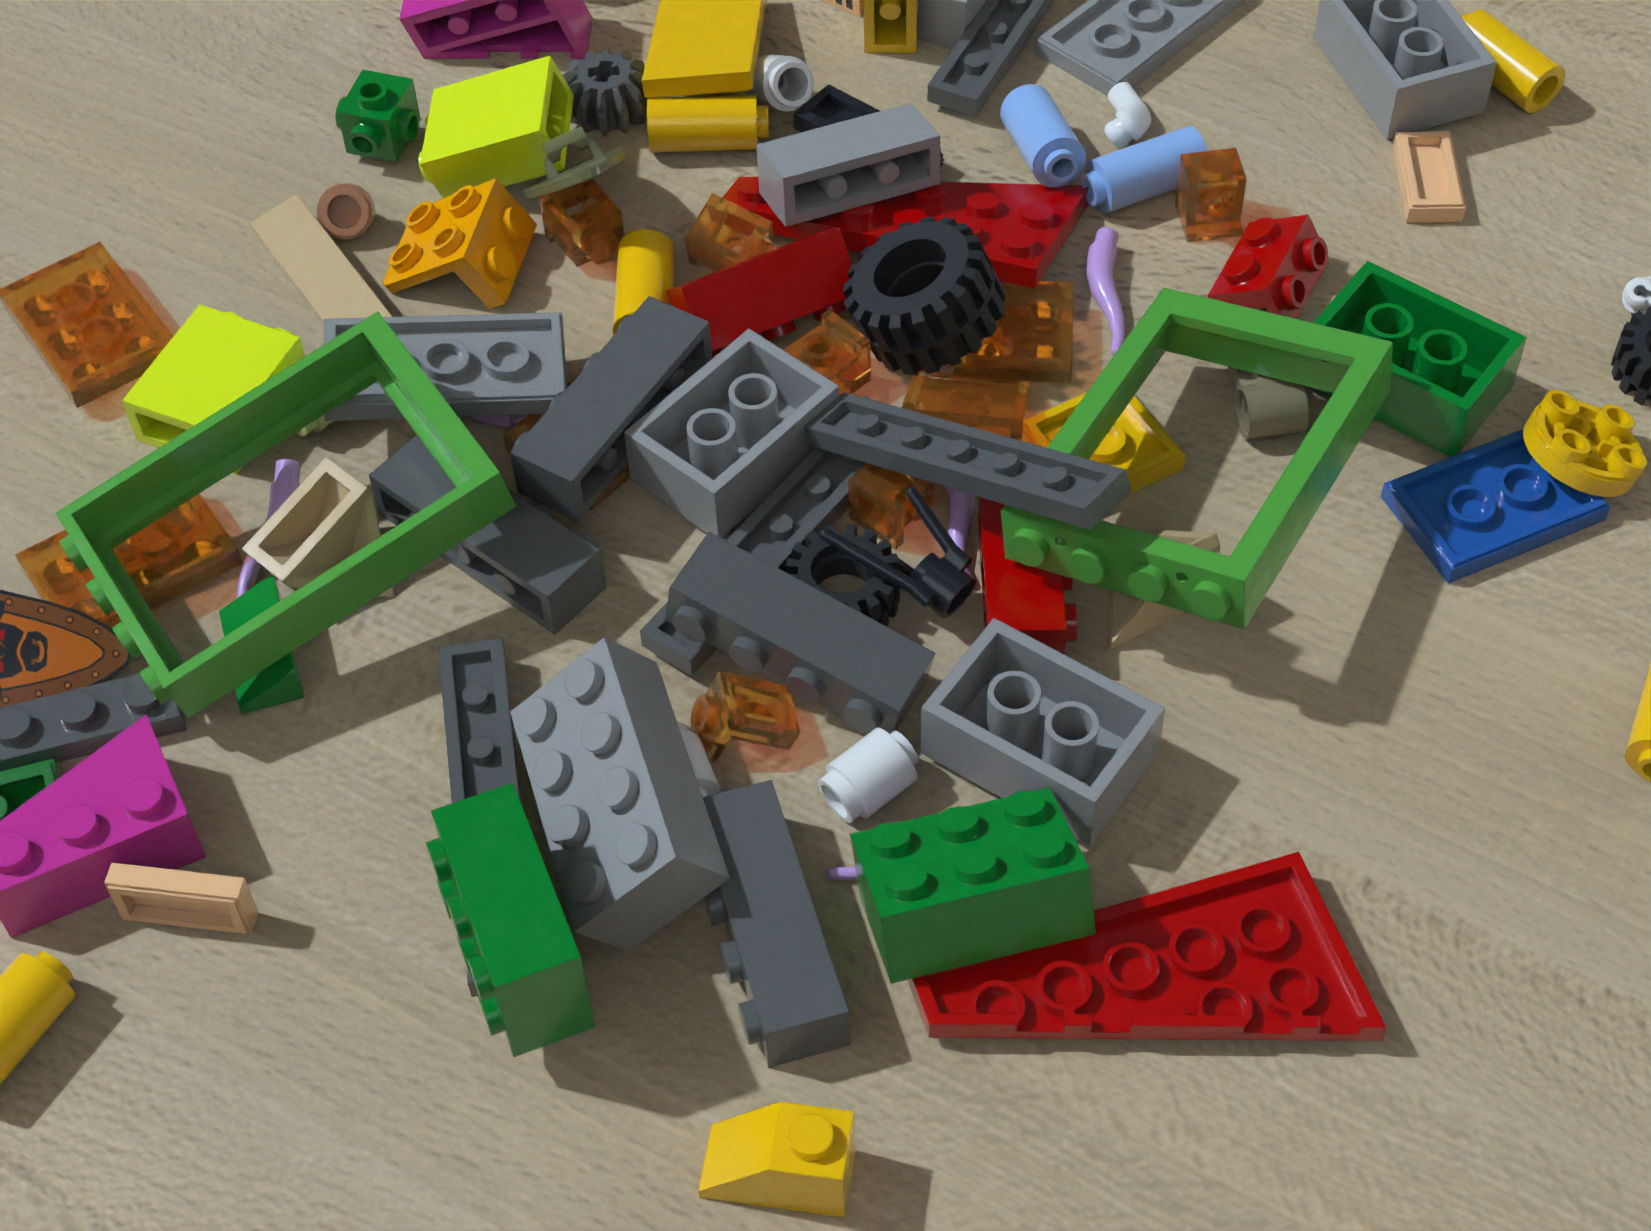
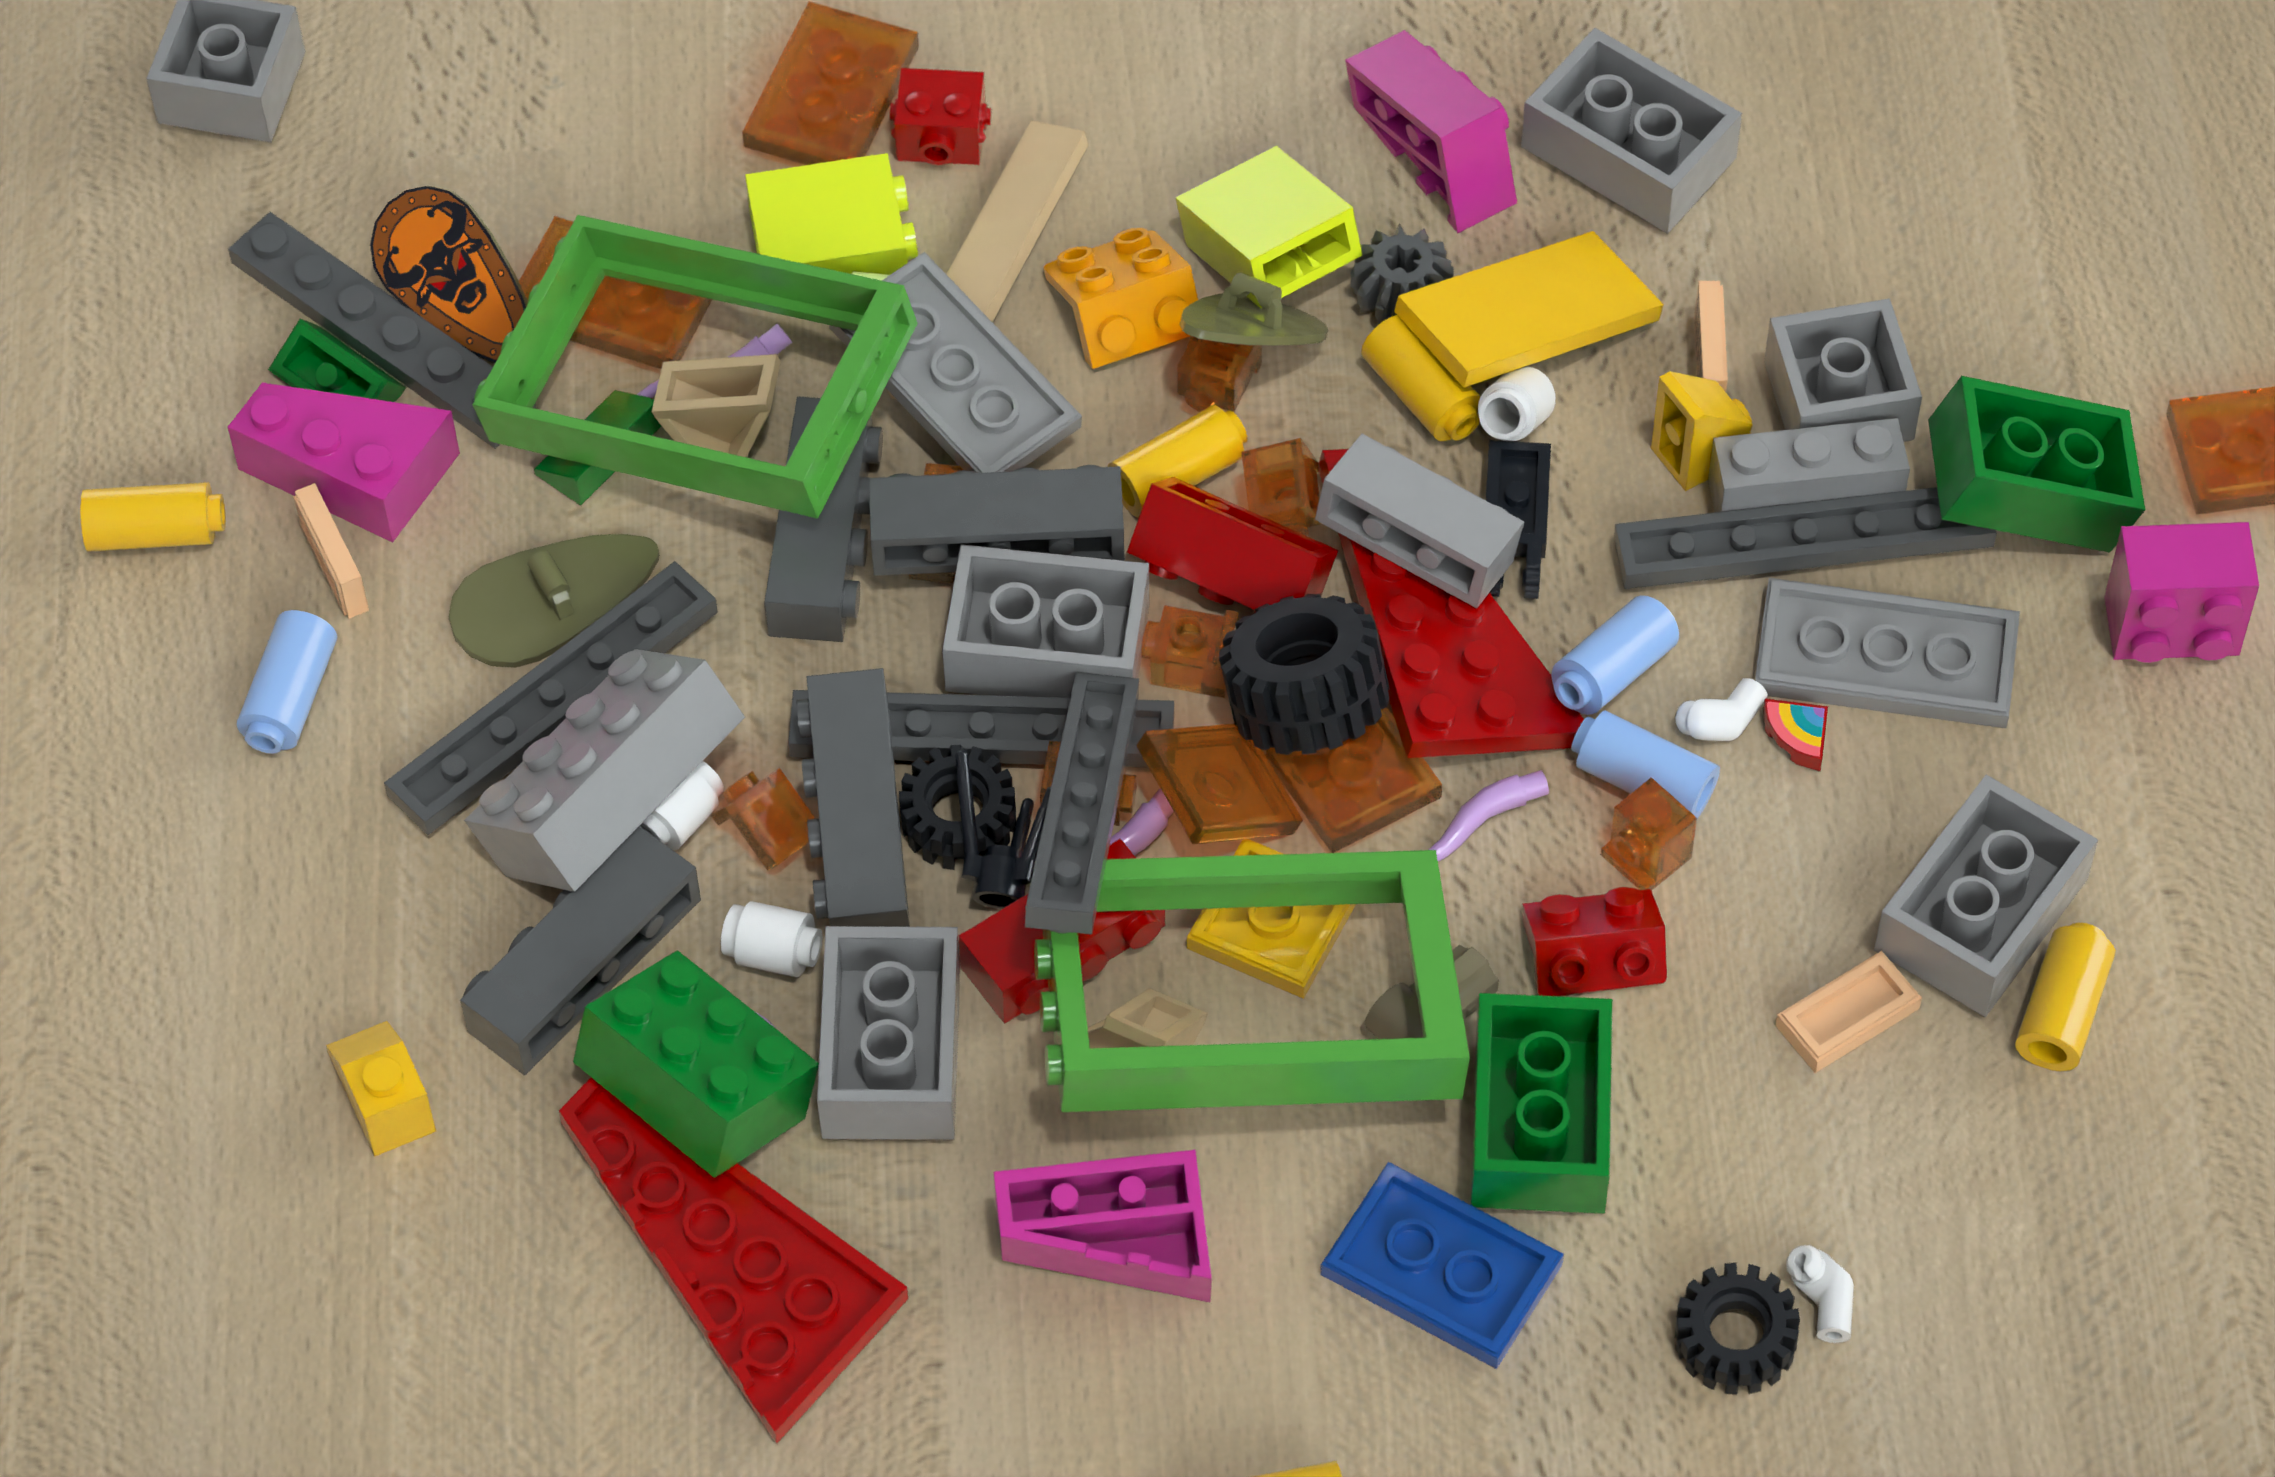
camera: 55 degrees right, 5 degrees up
(189, 267) = (940, 116): none -> red head
(285, 1009) = (286, 681): none -> light blue brick
(346, 211) = (1097, 181): nougat tile -> none
(372, 771) = (546, 596): none -> olive shield
(379, 116) = (1219, 127): green brick -> none
(509, 921) = (423, 767): green brick -> none
(1174, 86) = (1797, 730): none -> tile
(1341, 671) = (1110, 1221): none -> dark pink wedge
(1585, 444) = (1551, 1301): yellow tile -> none

